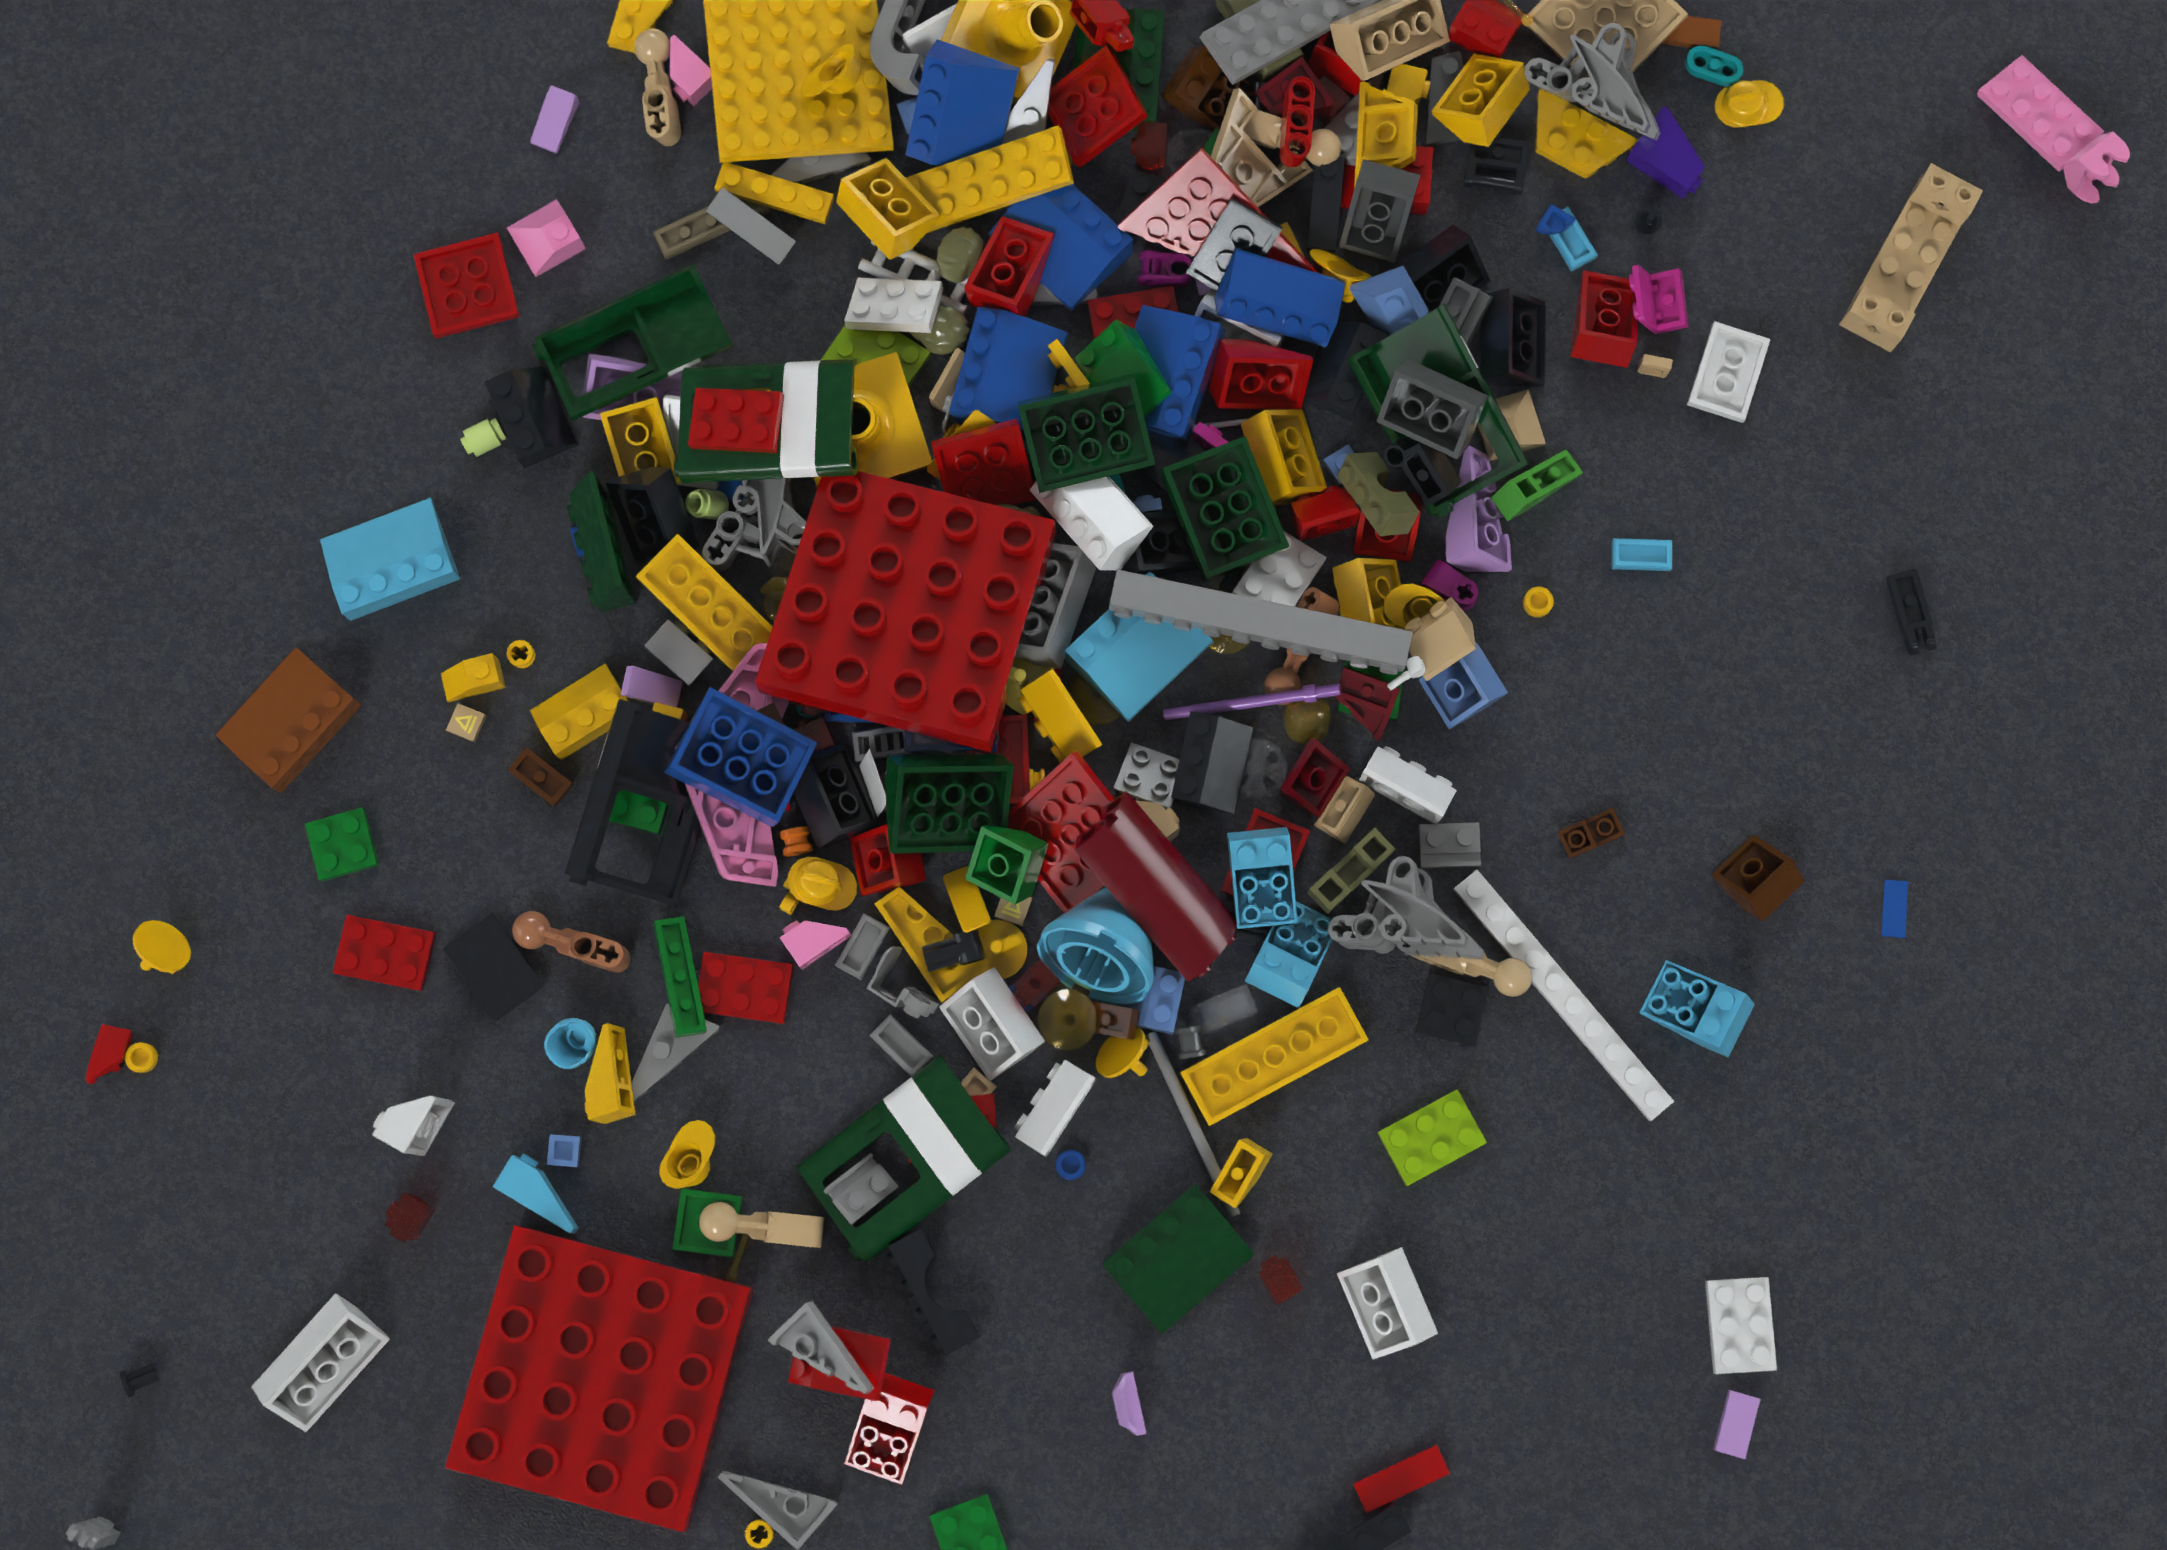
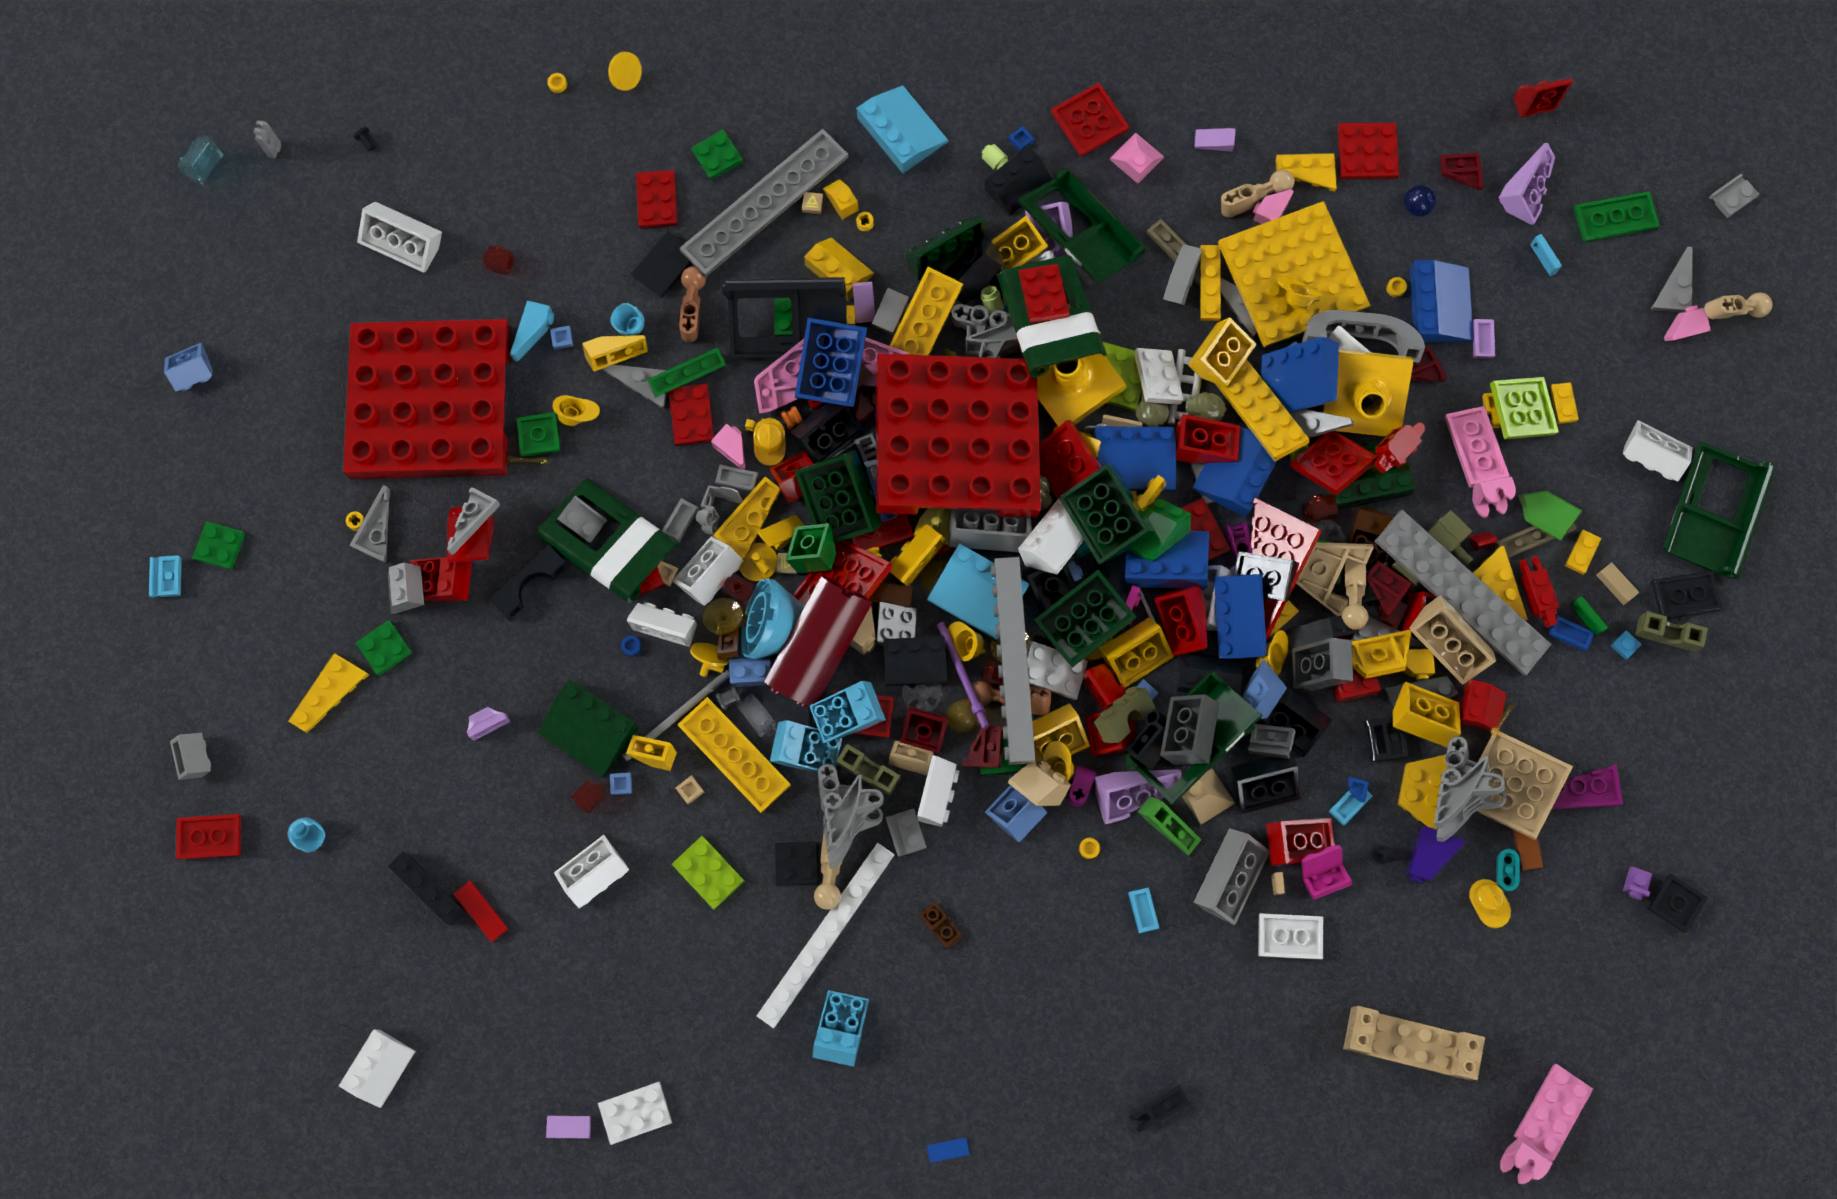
camera: 75 degrees right, 5 degrees down
(108, 1052) = (555, 63): red slope -> none
(288, 720) = (783, 101): dark orange slope -> none
(413, 1124) = (550, 241): white slope -> none
(444, 793) = (764, 202): none -> light grey plate
(463, 392) = (1021, 139): none -> blue tile
(540, 777) = (790, 255): reddish brown plate -> none
(721, 1222) = (544, 475): tan beam -> none
(890, 1479) = (405, 587): none -> light grey slope
(960, 949) = (747, 533): black piece -> none
(1108, 762) = (892, 594): none -> reddish brown slope
(1204, 683) = (966, 641): none -> yellow piece
(1260, 660) = (991, 672): none -> clear red brick
(1272, 1229) = (620, 783): none -> medium blue plate
(1297, 108) = (1373, 588): red beam -> none
(1306, 1133) = (689, 790): none -> tan tile
(1415, 669) = (1013, 771): white hand -> none
(1627, 423) = (1232, 876): none -> light grey slope
(1758, 877) = (941, 1047): reddish brown slope -> none

